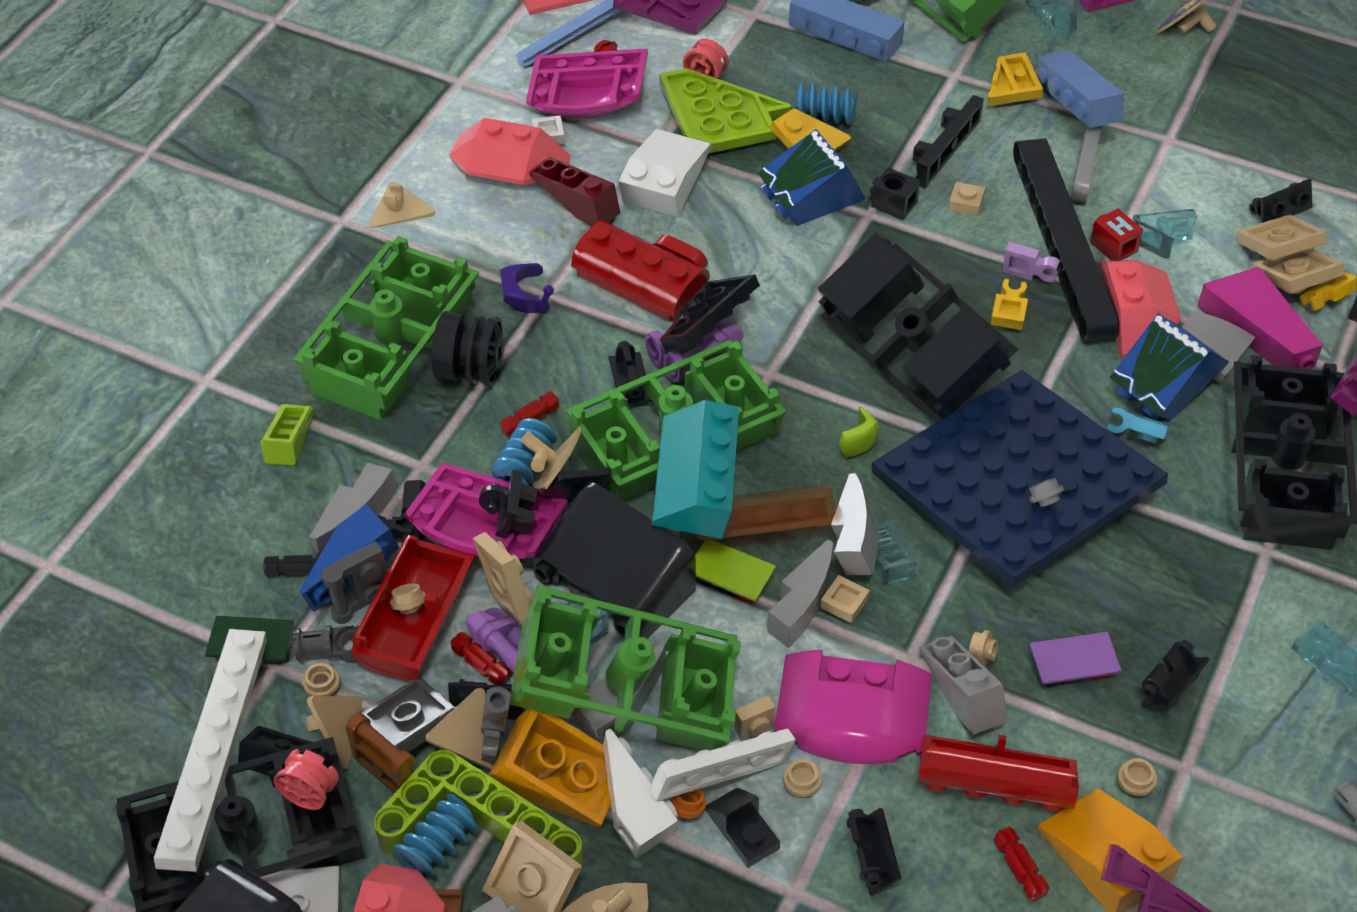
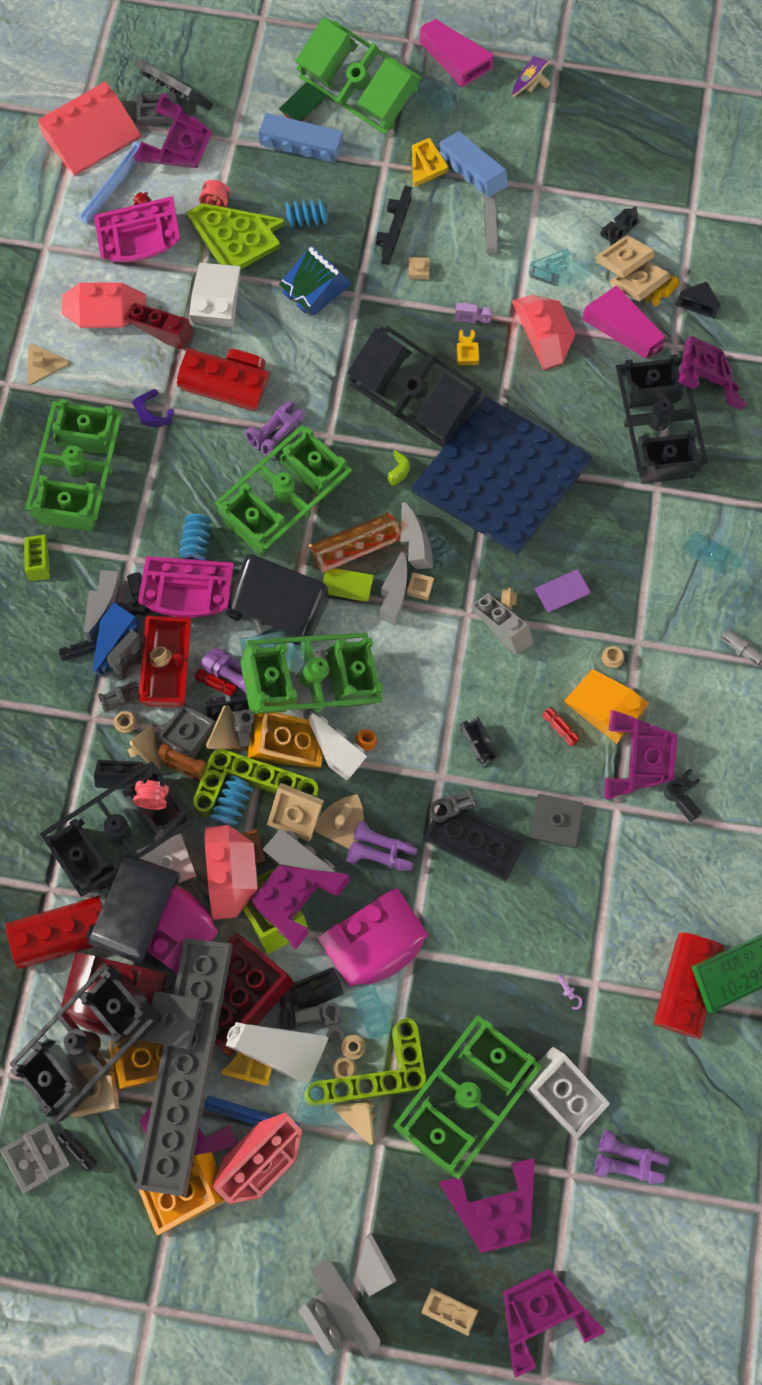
camera: 20 degrees left, 20 degrees up
(210, 752) = (84, 787): white plate -> none
(277, 633) = (71, 706): dark green piece -> none
(467, 348) = (134, 470): black wheel -> none
(503, 576) = (216, 630): tan plate -> none
(511, 503) = (199, 579): black hips -> none
(534, 410) = (187, 505): red axle -> none
(546, 461) = (216, 541): tan shield -> none
(552, 126) = (125, 276): white plate -> none
(569, 483) = (233, 549): black slope -> none
(627, 367) = (240, 459): black hinge -> none
(696, 469) = (312, 529): teal slope -> none
(708, 310) = (281, 400): black wing -> none
(721, 764) = (376, 719): white plate -> none
(742, 825) = (399, 744): black slope -> none
(754, 718) = (391, 678): tan plate -> none
(796, 125) = (298, 240): yellow wing -> none
(802, 778) = (426, 708): tan plate -> none
(853, 707) = (442, 655): dark pink slope -> none
(894, 193) = (374, 270): black brick -> none
(999, 772) = (536, 675): red container -> none
(1046, 492) = (524, 490): light grey plate -> none
(1066, 241) = (489, 287): black beam -> none
(1116, 235) = (521, 278): red brick -> none
(1147, 428) = (570, 420): medium azure plate -> none
(1166, 368) = (575, 376): slope -> none
(1166, 686) = (619, 593): black hinge -> none
(1220, 336) = (595, 349): light grey slope -> none

